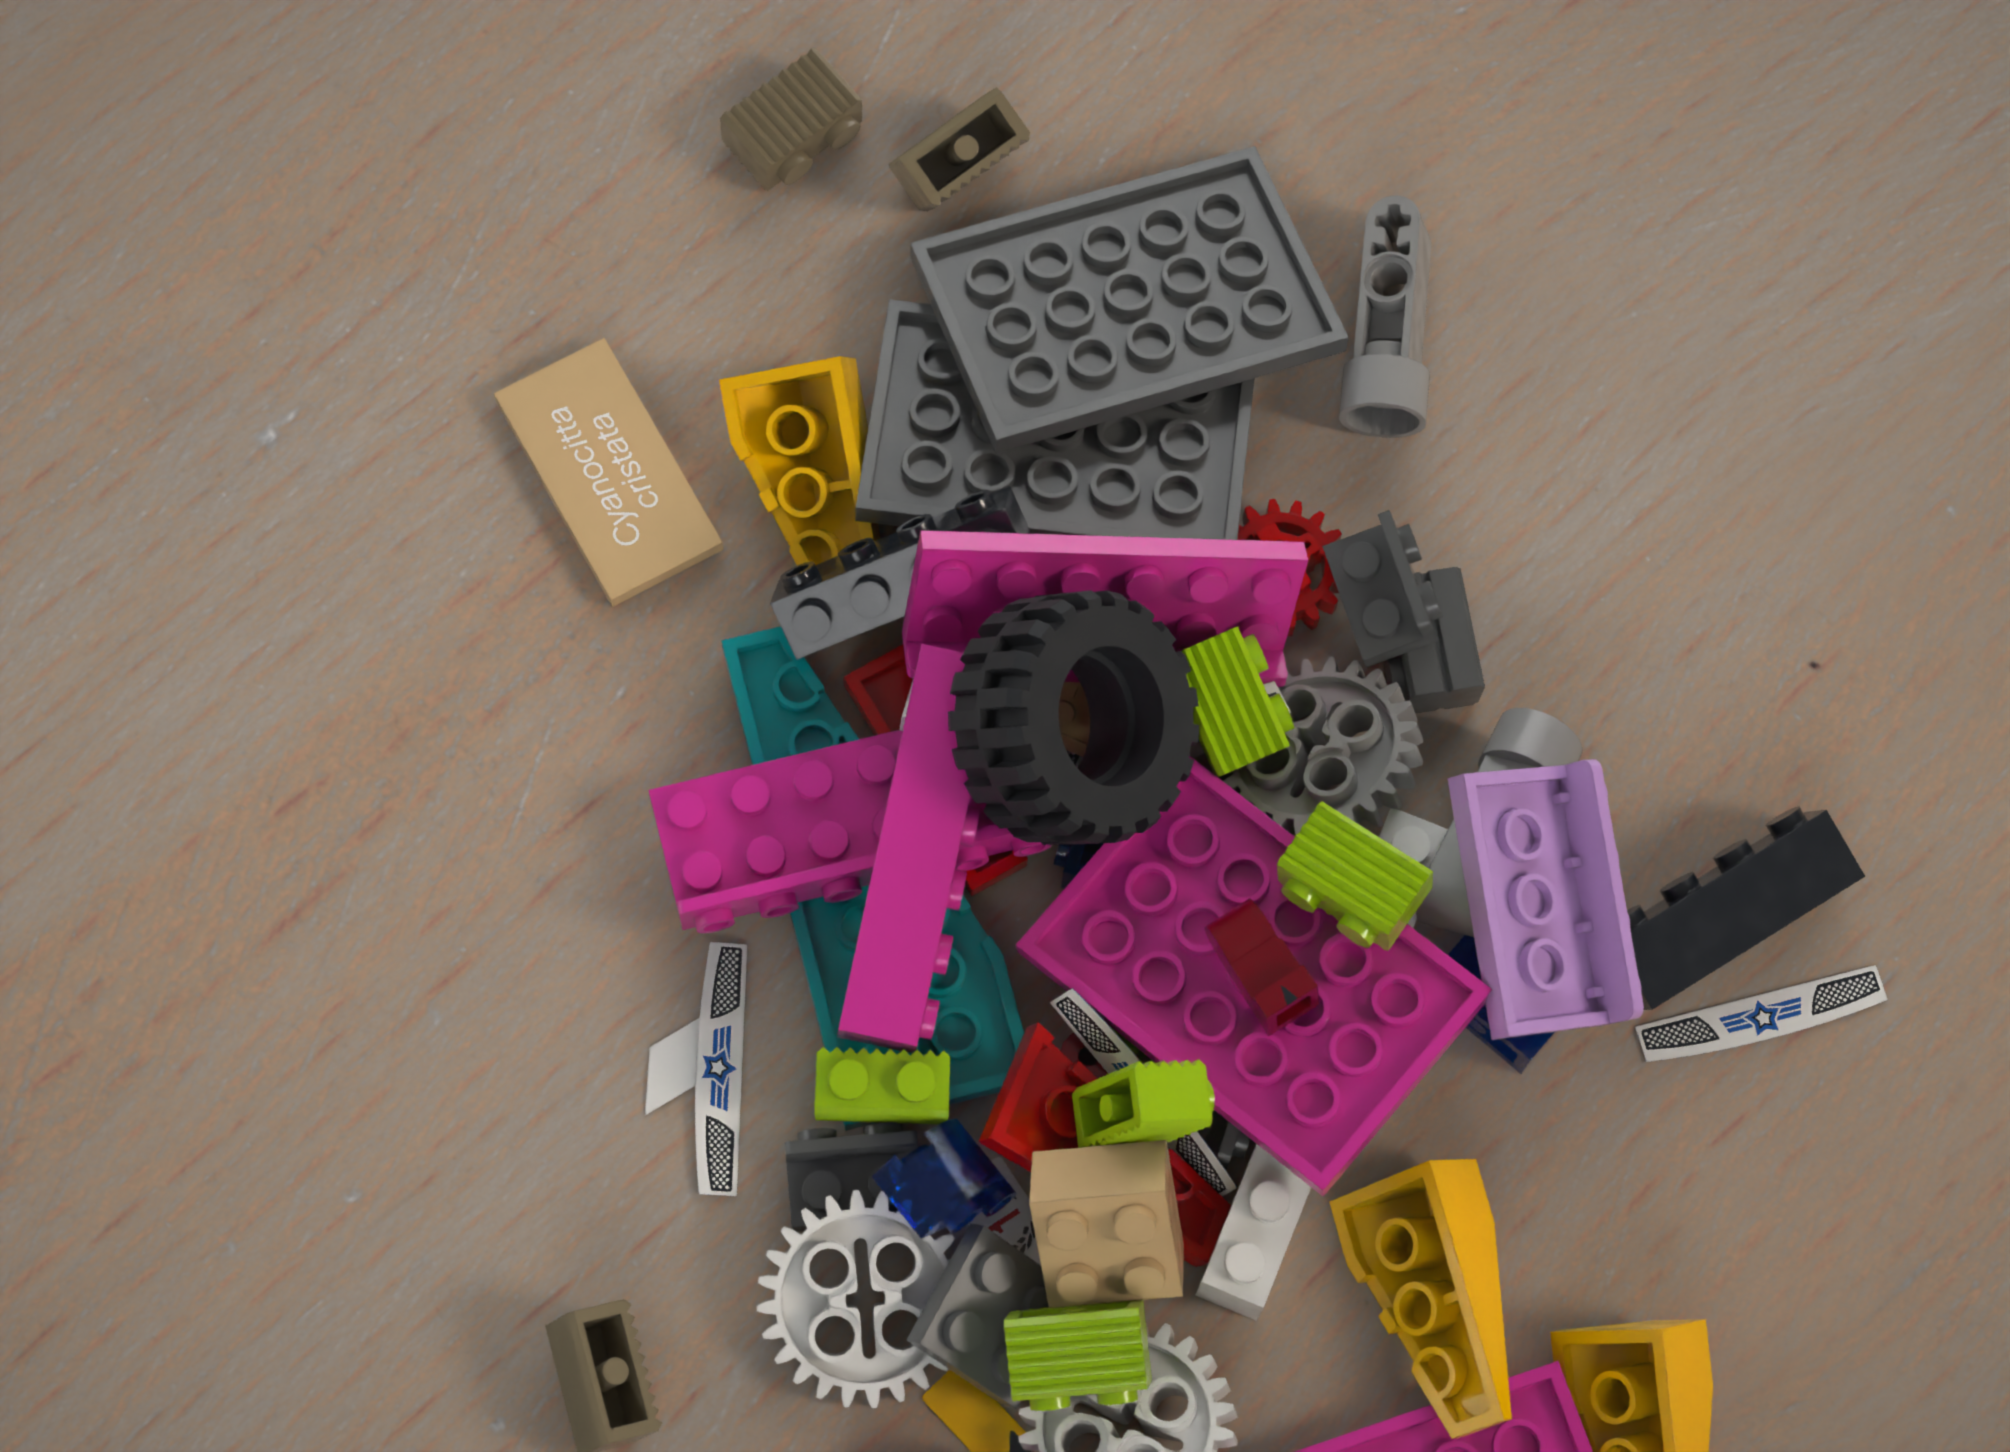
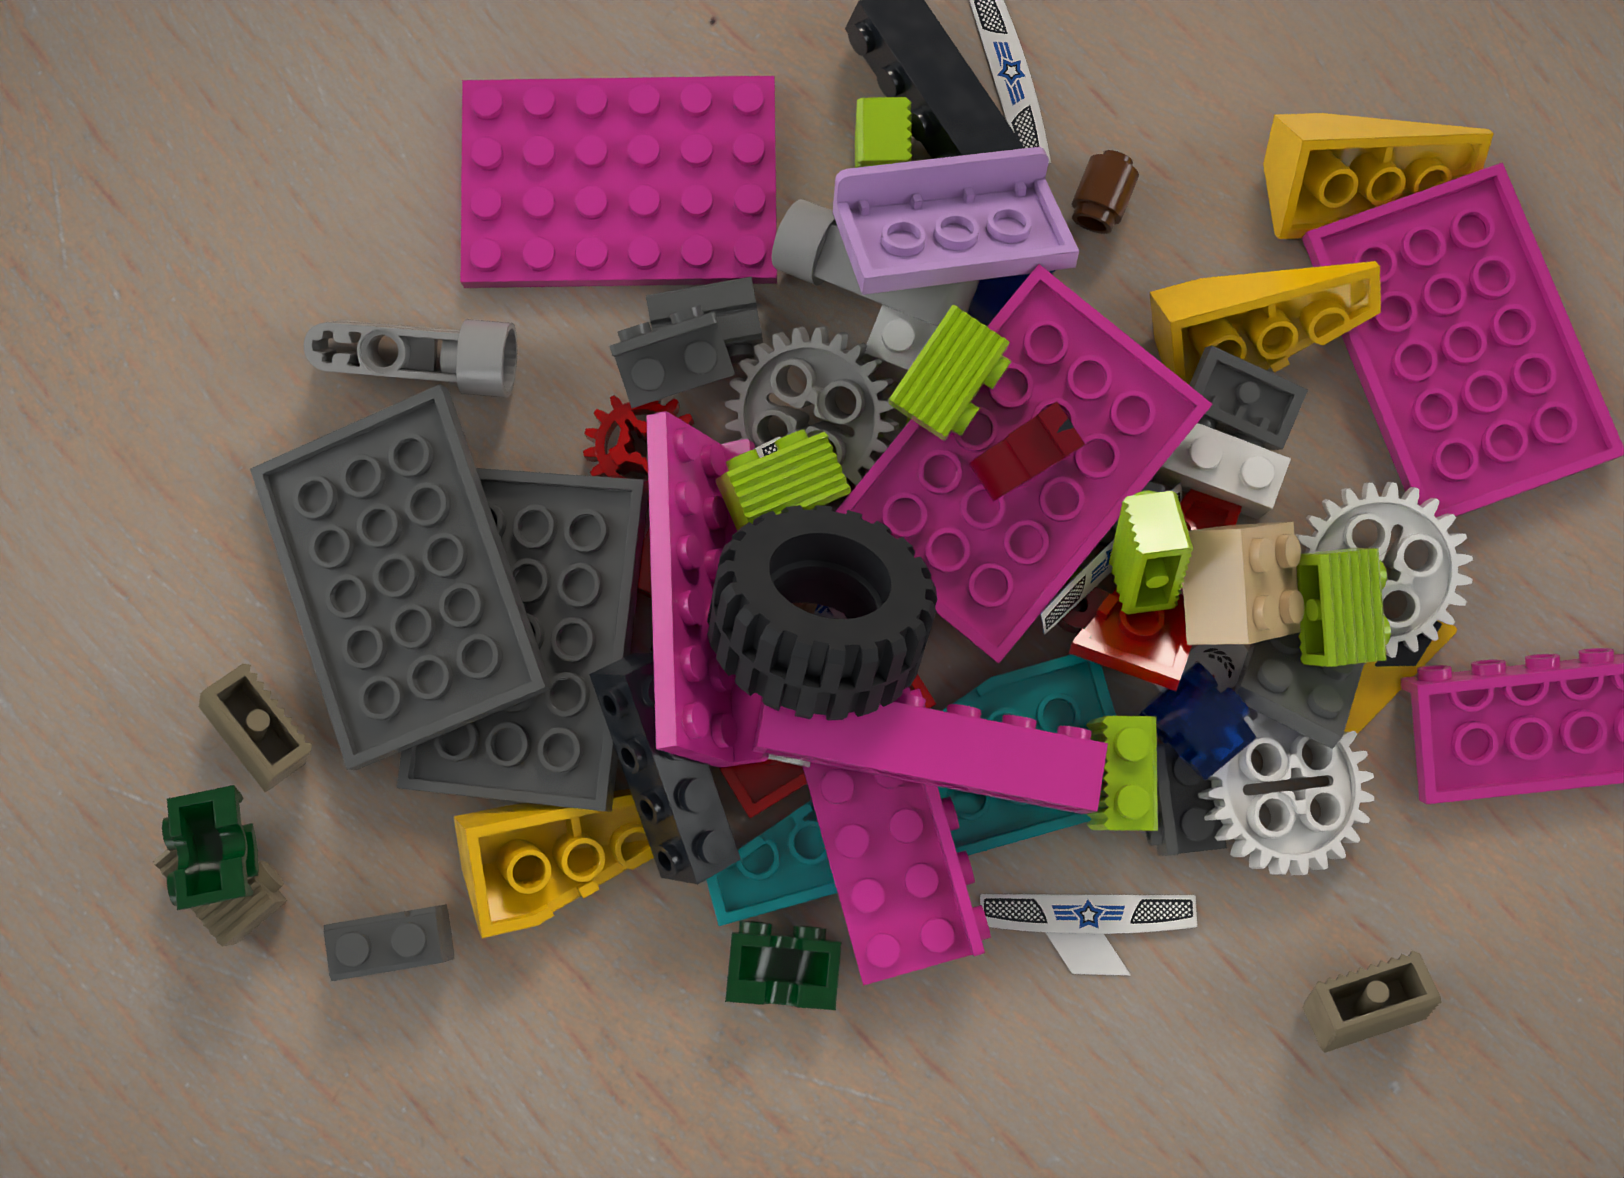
camera: 85 degrees left, 10 degrees up
(608, 472) = (557, 1034): tan tile -> none
(673, 704) = (783, 968): none -> dark green cylinder
(717, 291) = (388, 942): none -> dark grey brick
(827, 101) = (211, 848): none -> dark green cylinder
(1337, 1258) = (1246, 399): none -> dark grey bracket
(1605, 1115) = (1104, 191): none -> reddish brown brick
(1608, 551) = (618, 181): none -> dark pink plate
(1654, 836) = (883, 131): none -> lime brick

